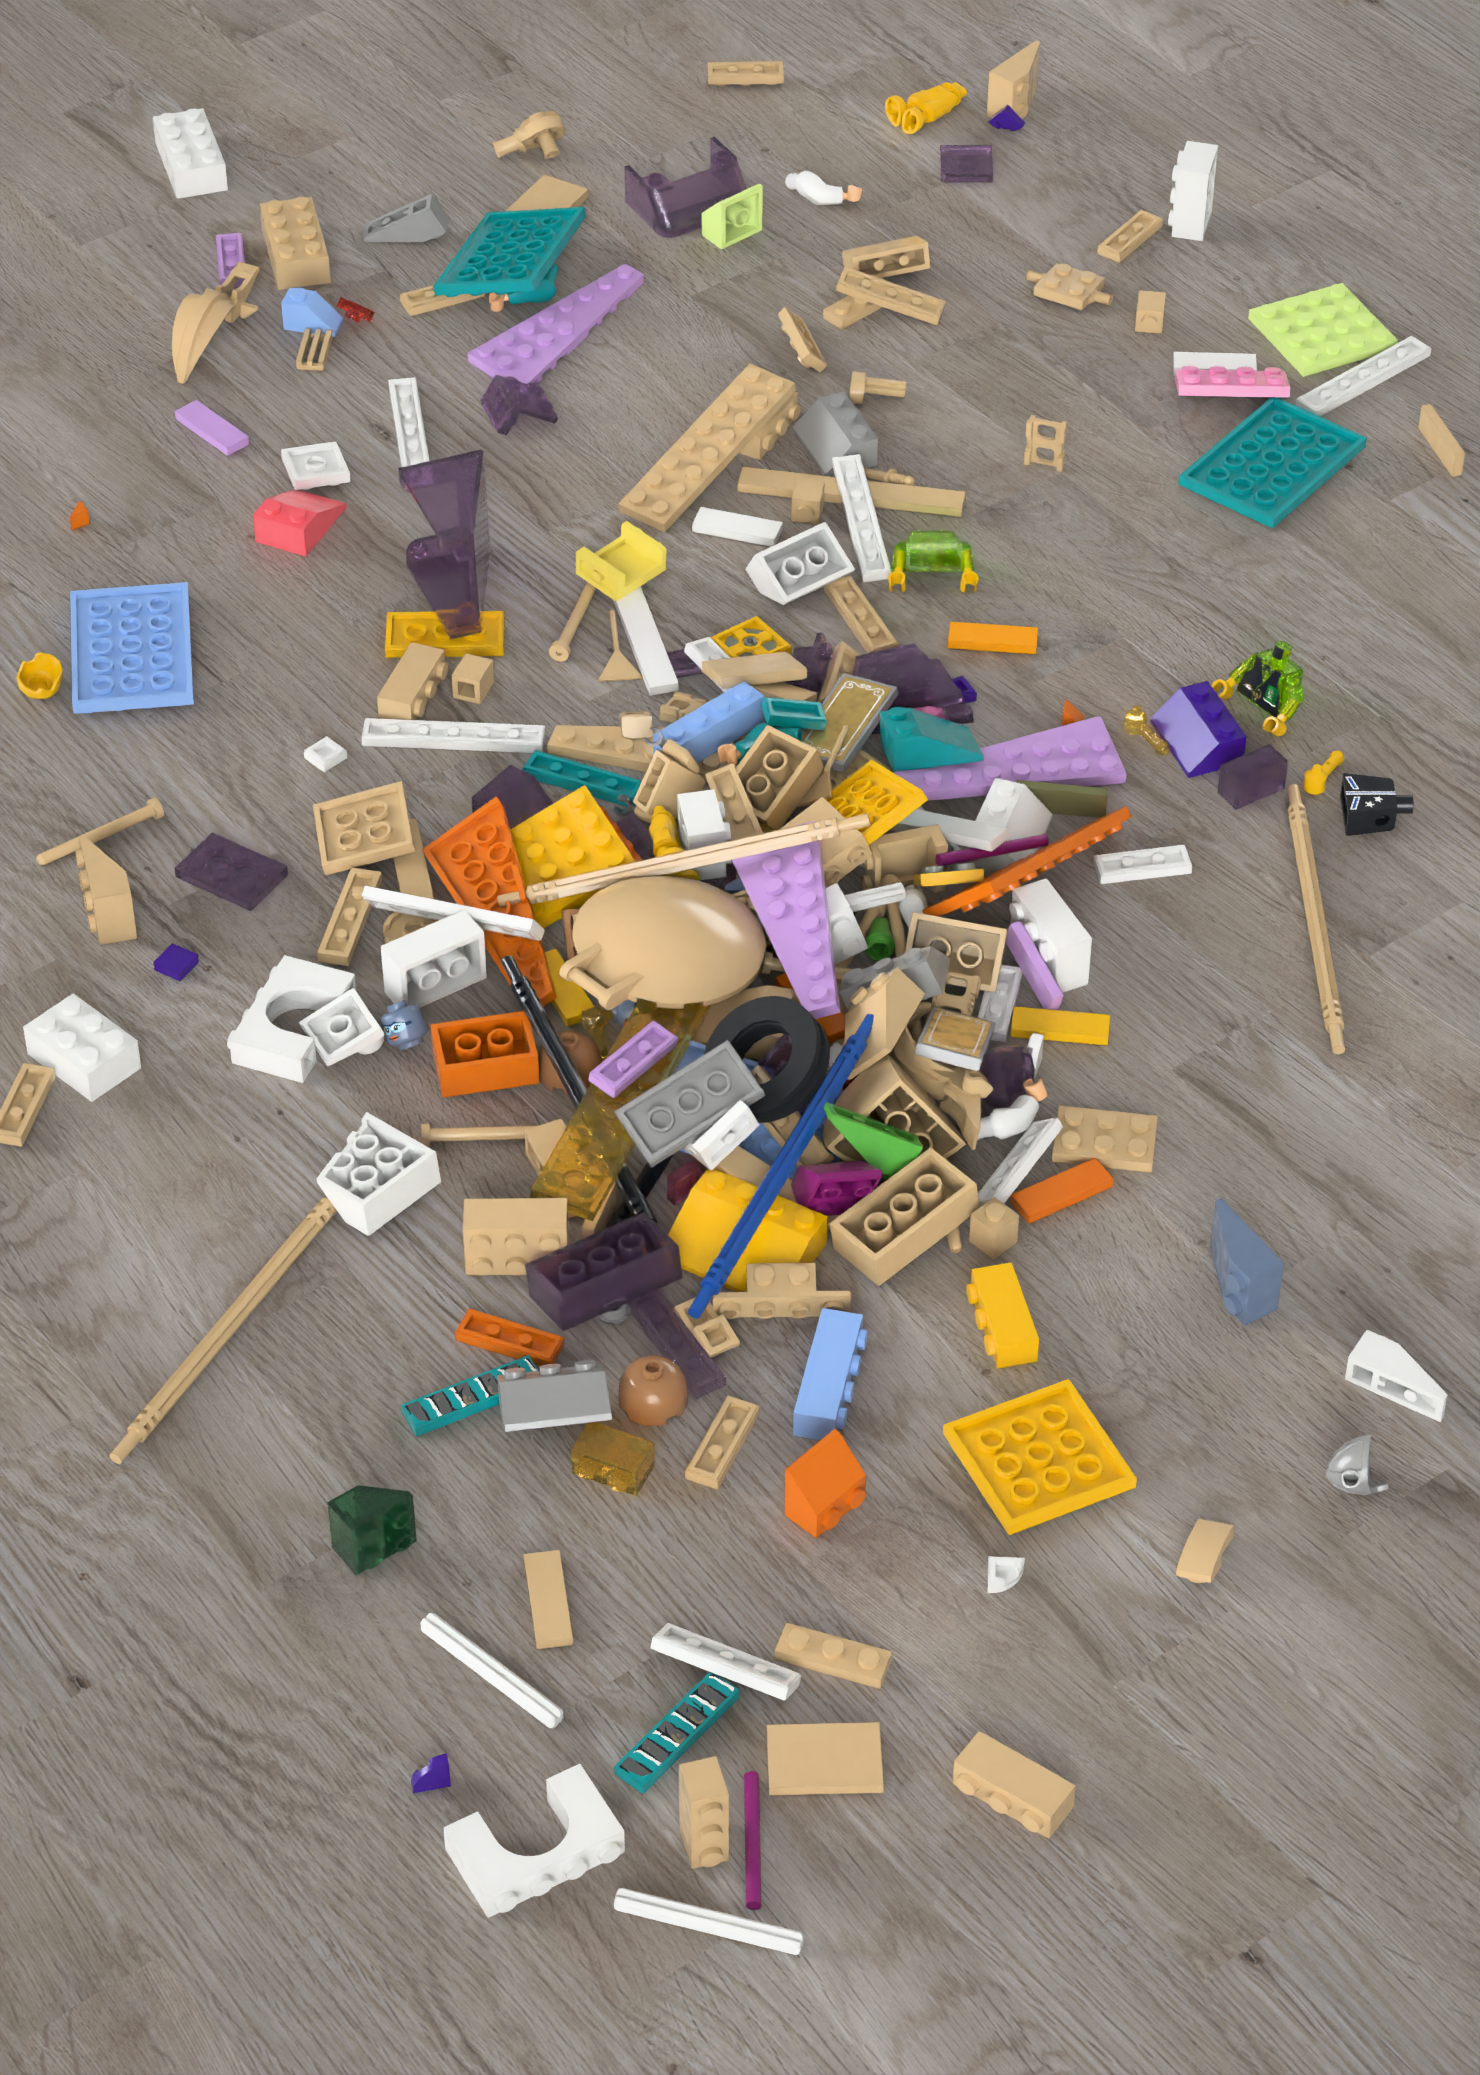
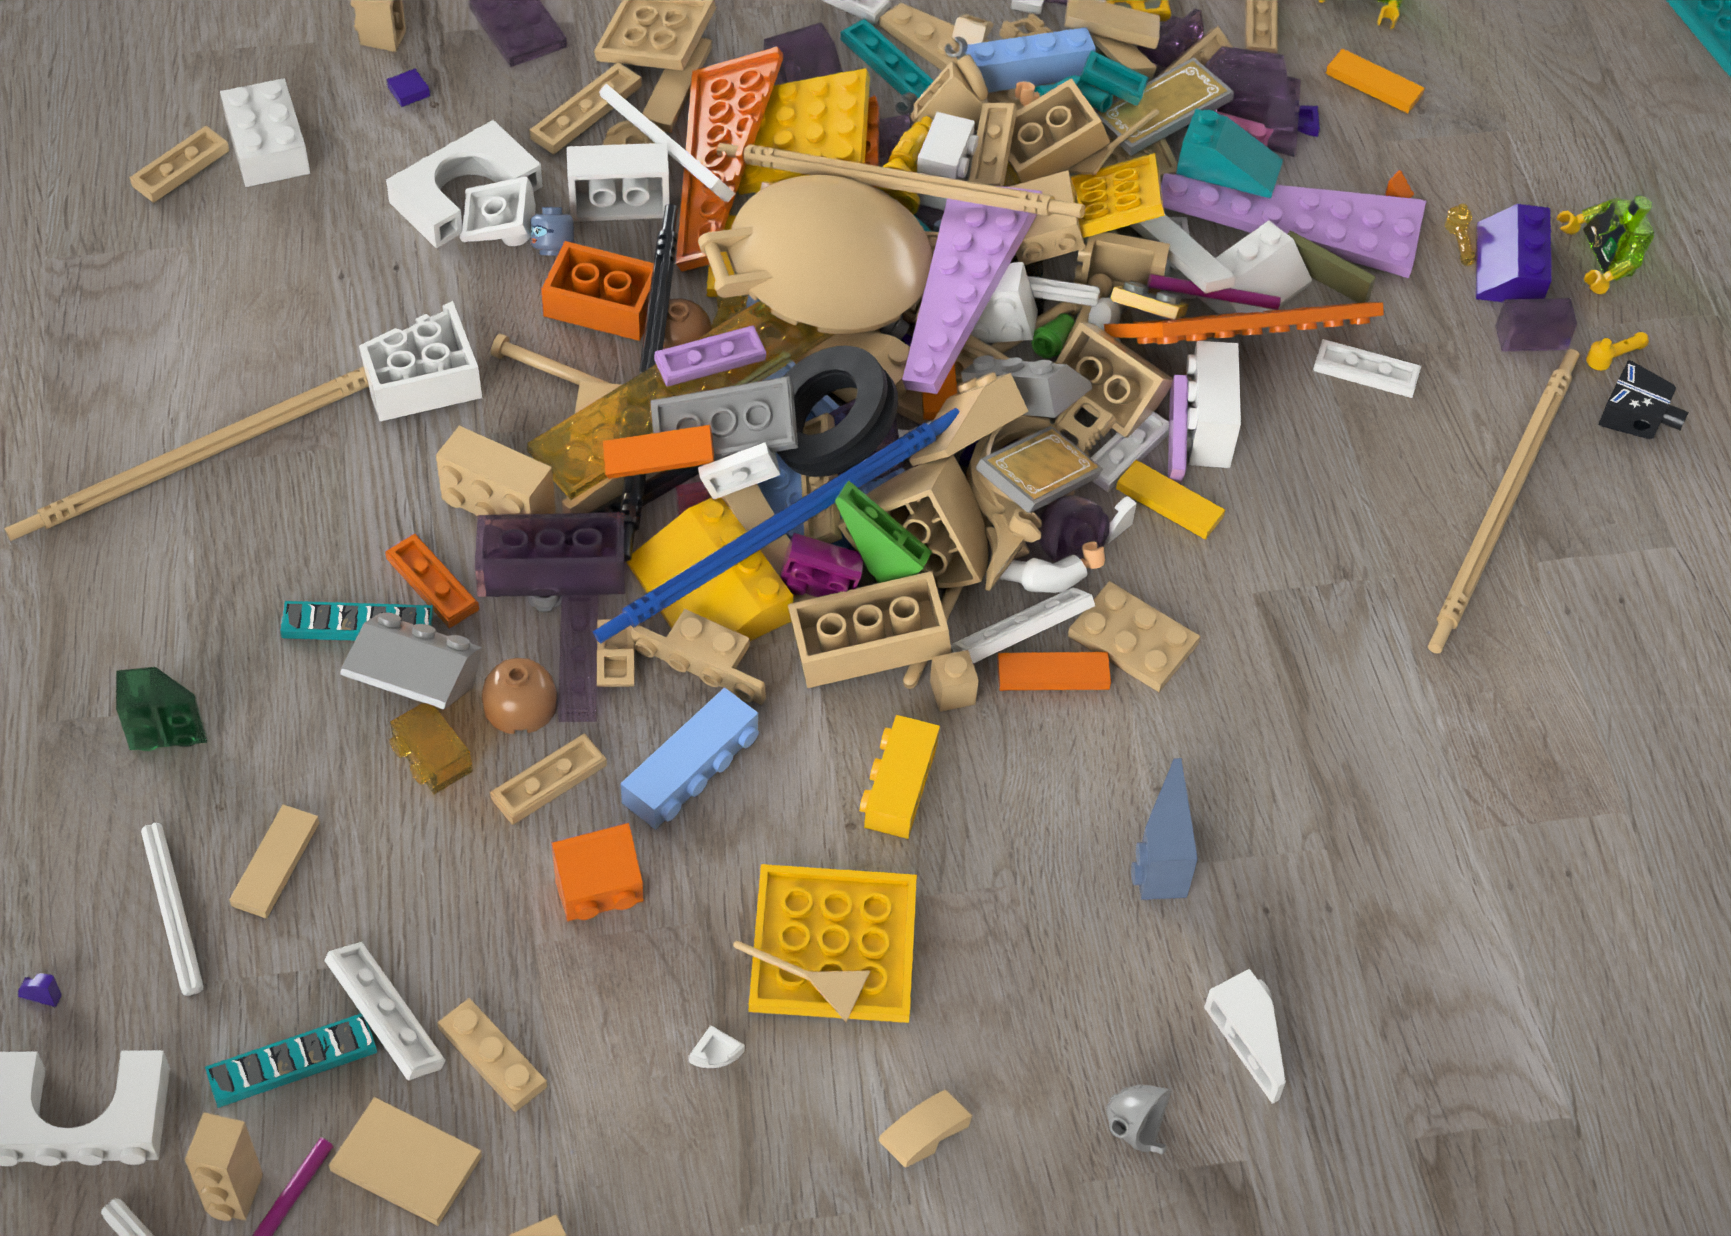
camera: 25 degrees right, 10 degrees up
(650, 1147) = (658, 451): none -> orange tile
(1069, 1482) = (837, 987): none -> tan piece

